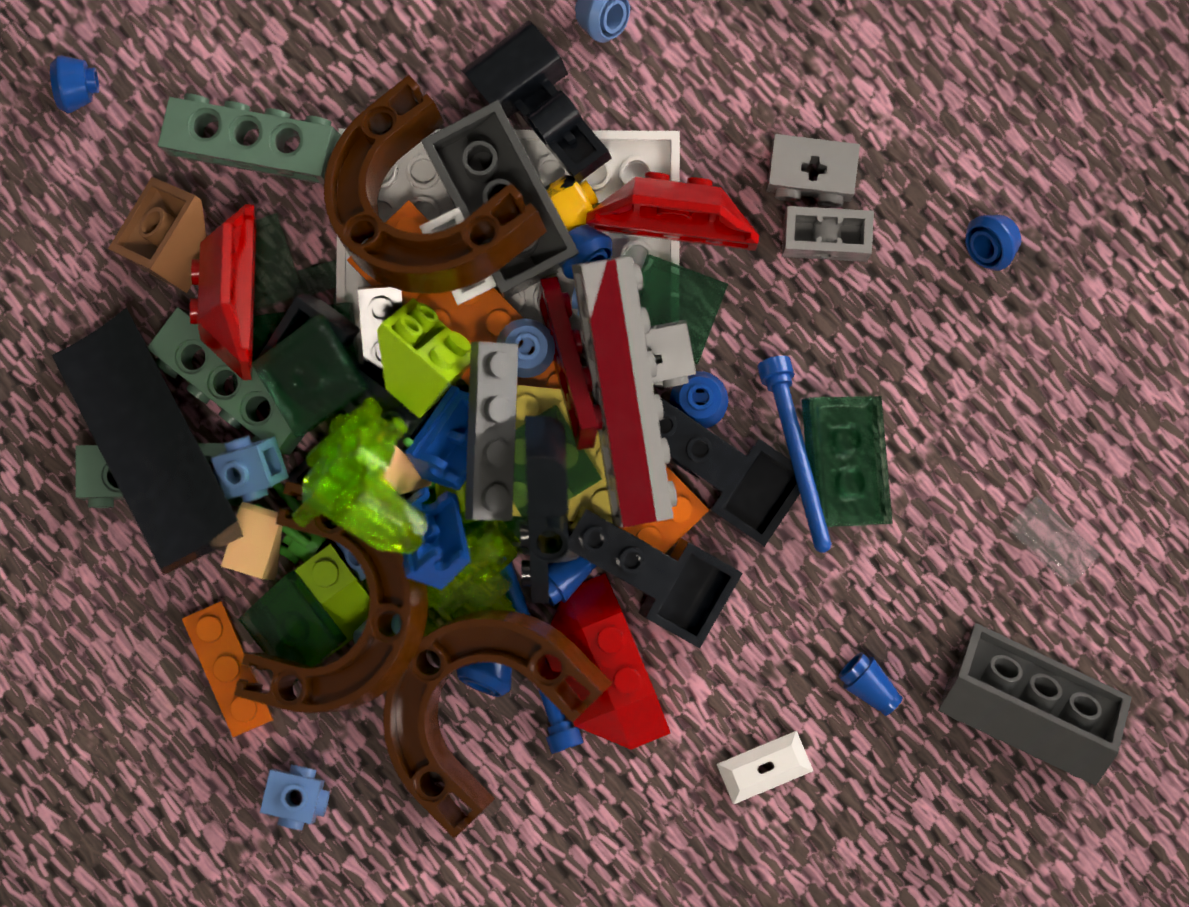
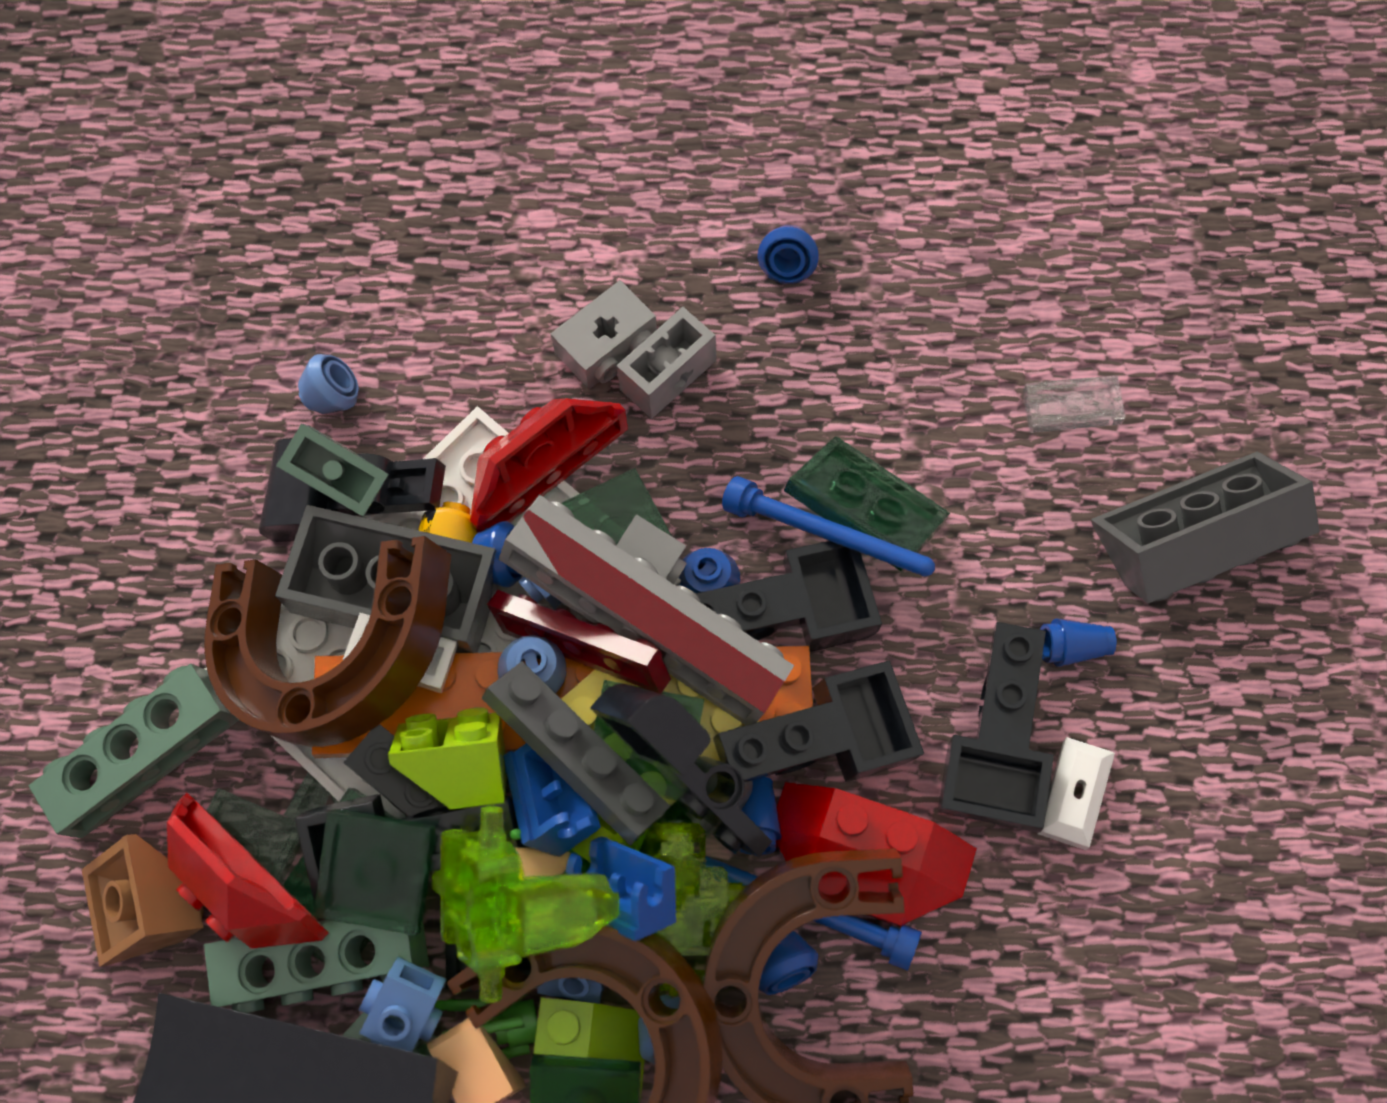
camera: 40 degrees left, 15 degrees down
(537, 93) = (332, 469): none -> sand green slope
(729, 706) = (996, 773): none -> black plate

